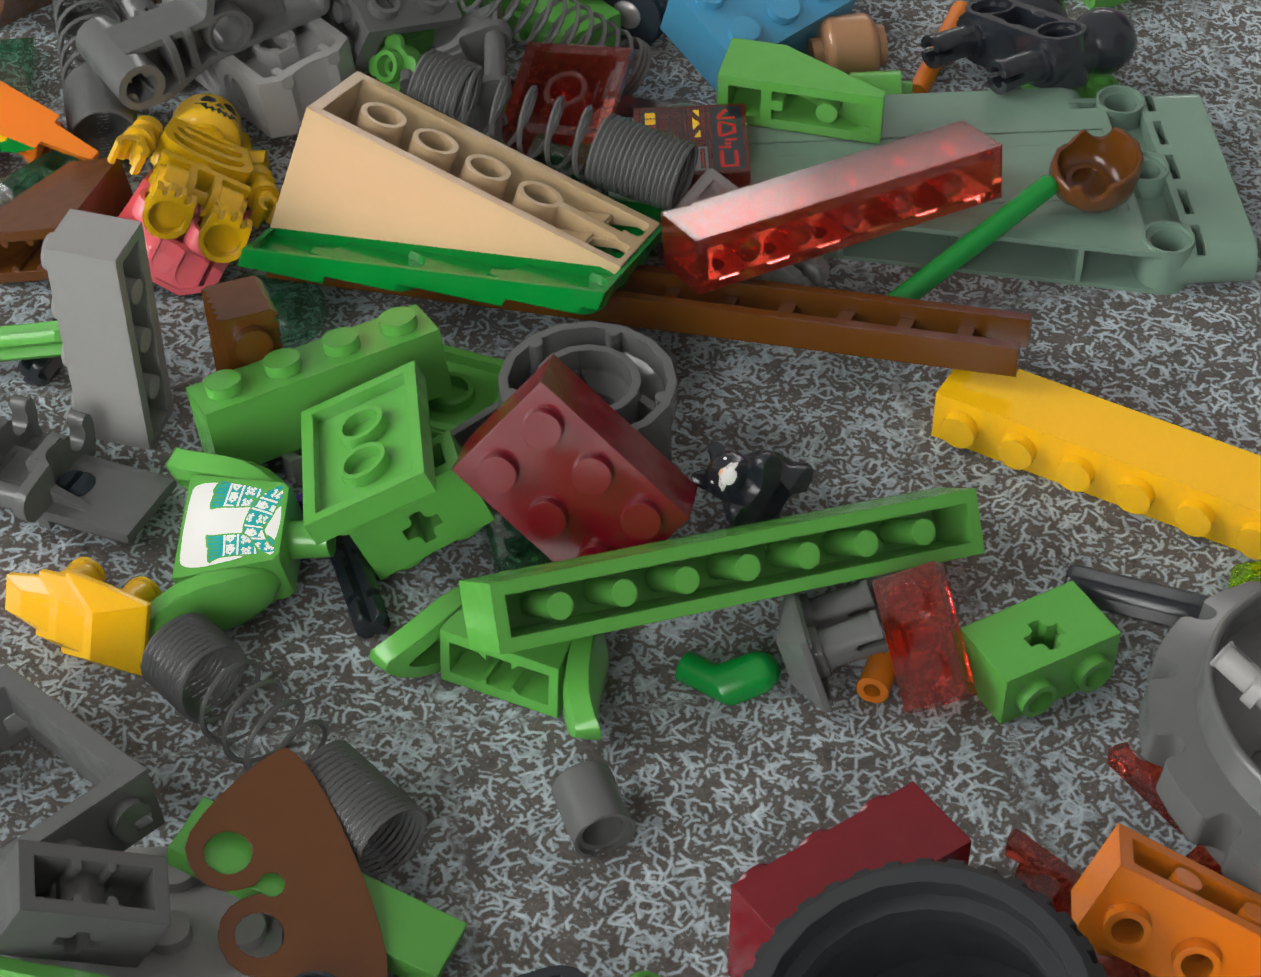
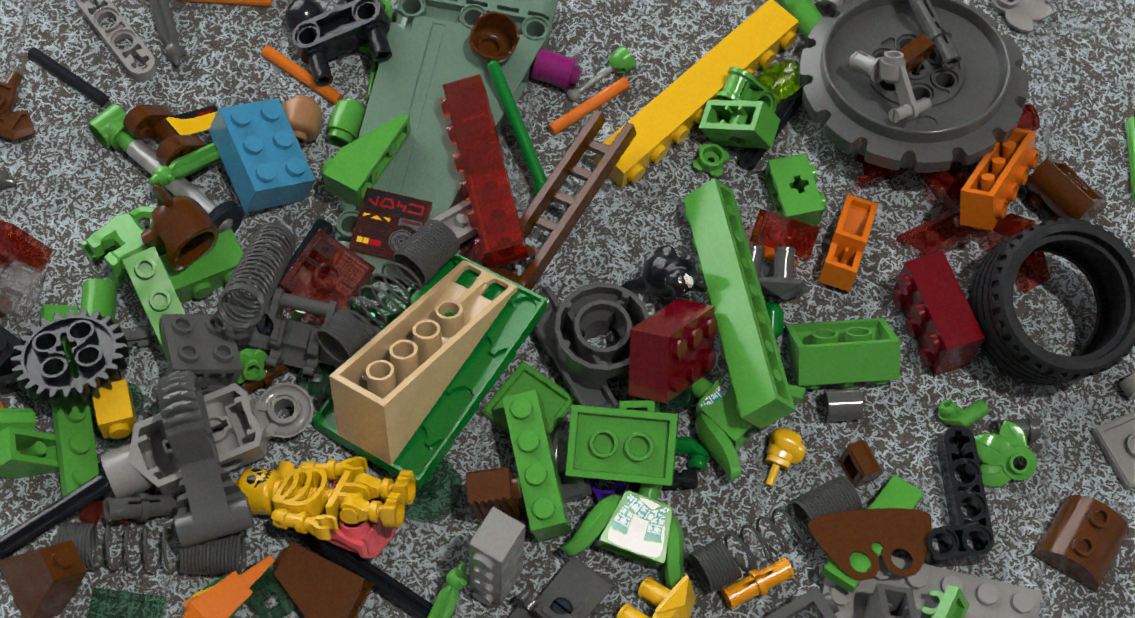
camera: 80 degrees left, 20 degrees up
(179, 745) = (758, 583): none -> light orange pin
(430, 584) = (694, 451): none -> green arm
(466, 737) = (783, 449): none -> yellow piece
(472, 856) = (860, 464): none -> reddish brown brick
(704, 781) = (843, 352): none -> bright green slope
(971, 759) = (848, 243): none -> orange slope
(1050, 530) = (714, 152): none -> bright green plate
(1091, 368) = (588, 106): none -> orange bar
(1113, 293) = (556, 69): none -> magenta brick
(1128, 524) = (739, 123): none -> bright green brick
(1182, 373) = (620, 62): none -> hinge
(1198, 516) = (745, 87): none -> bright green piece

